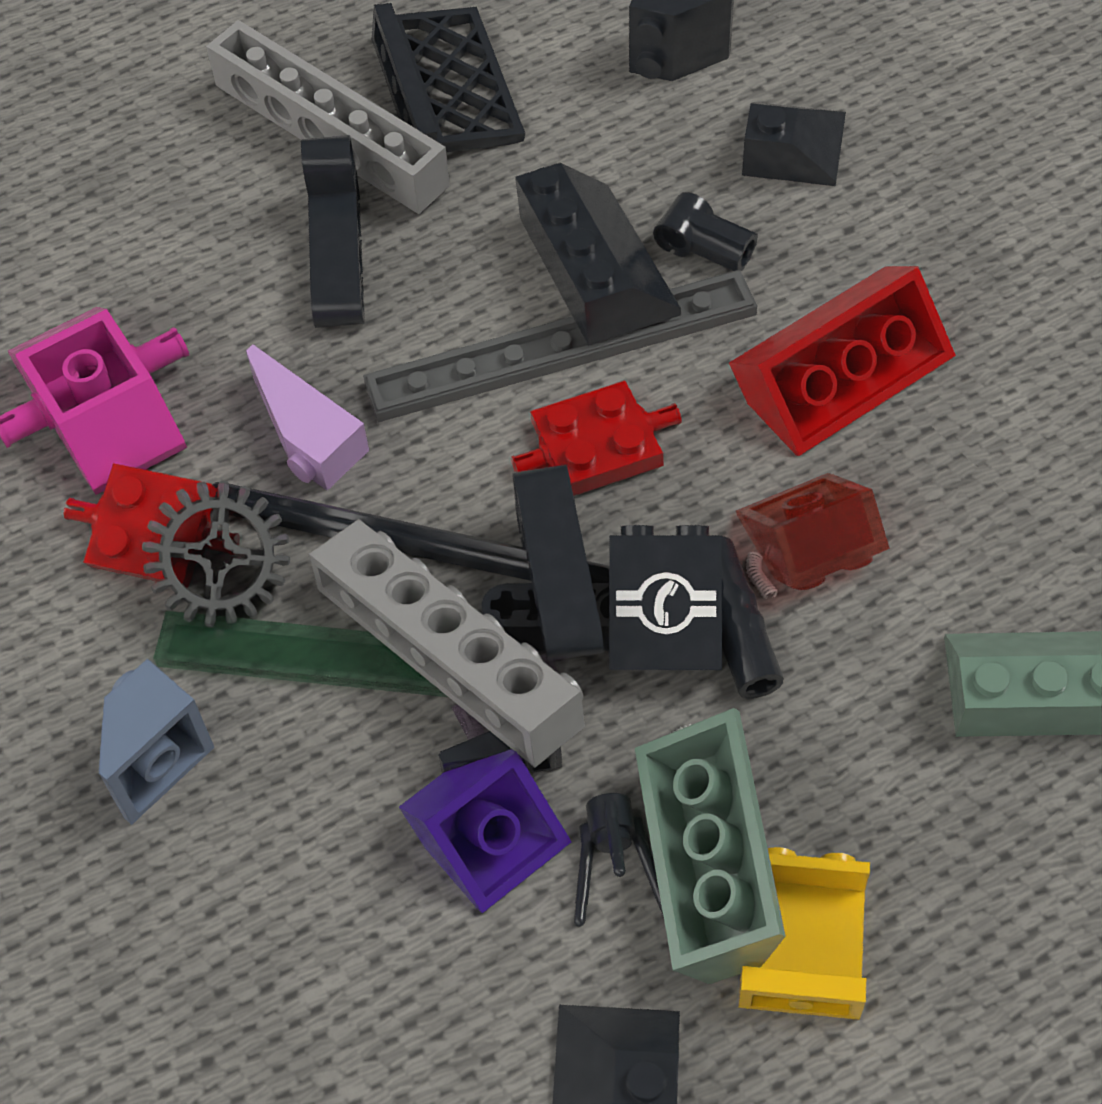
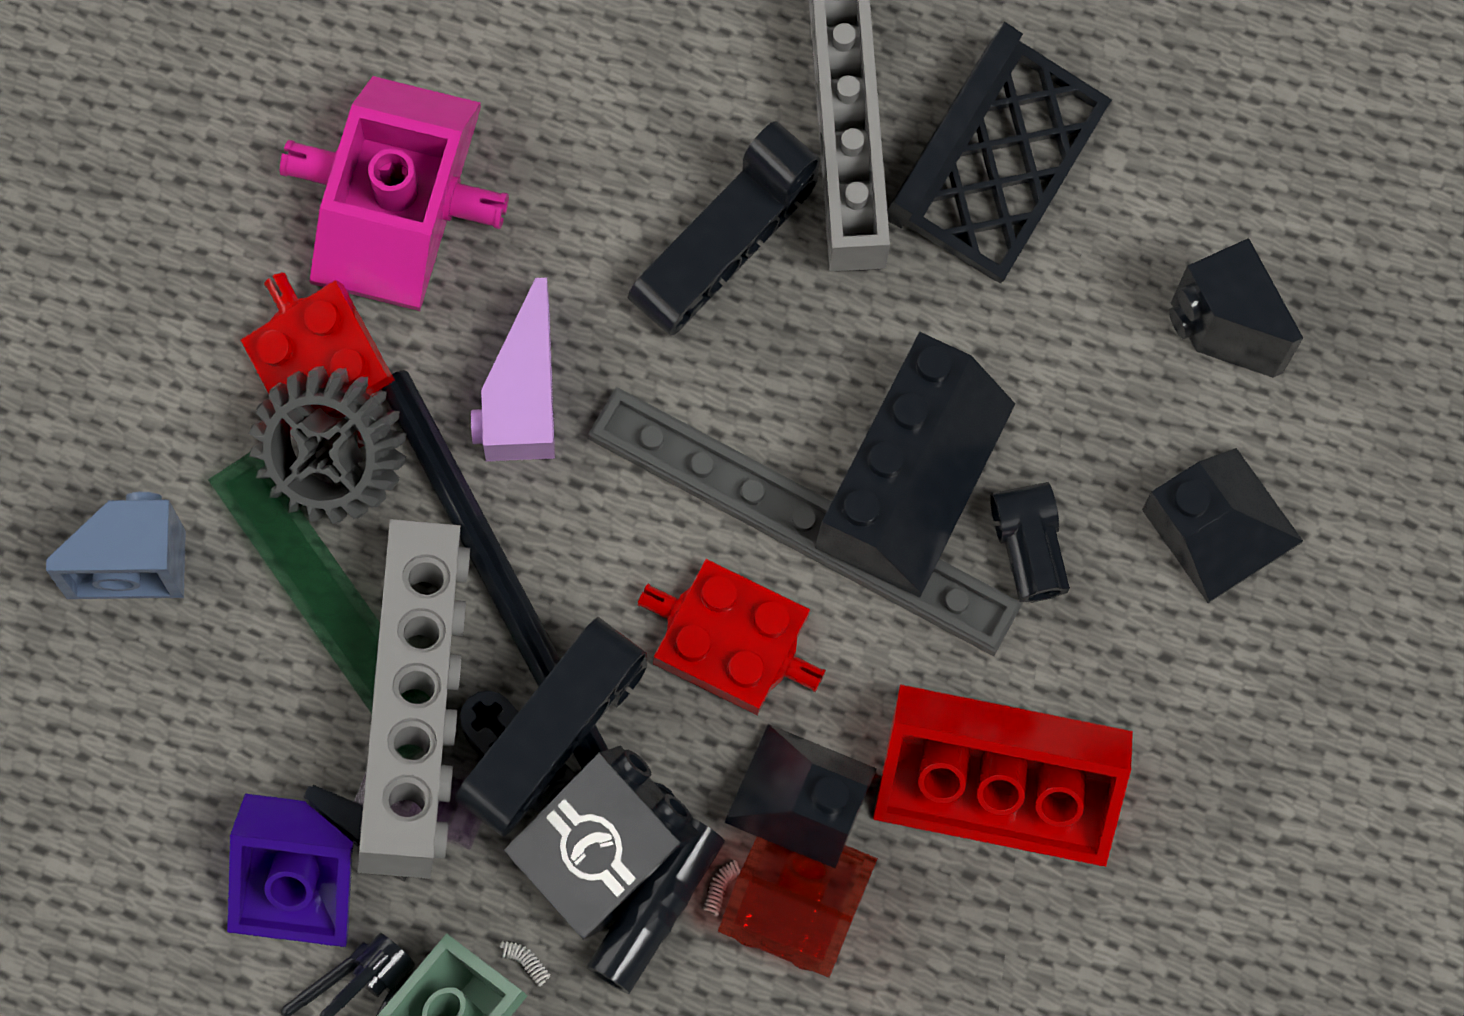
camera: 40 degrees right, 15 degrees up
(751, 470) = (801, 796): none -> black slope

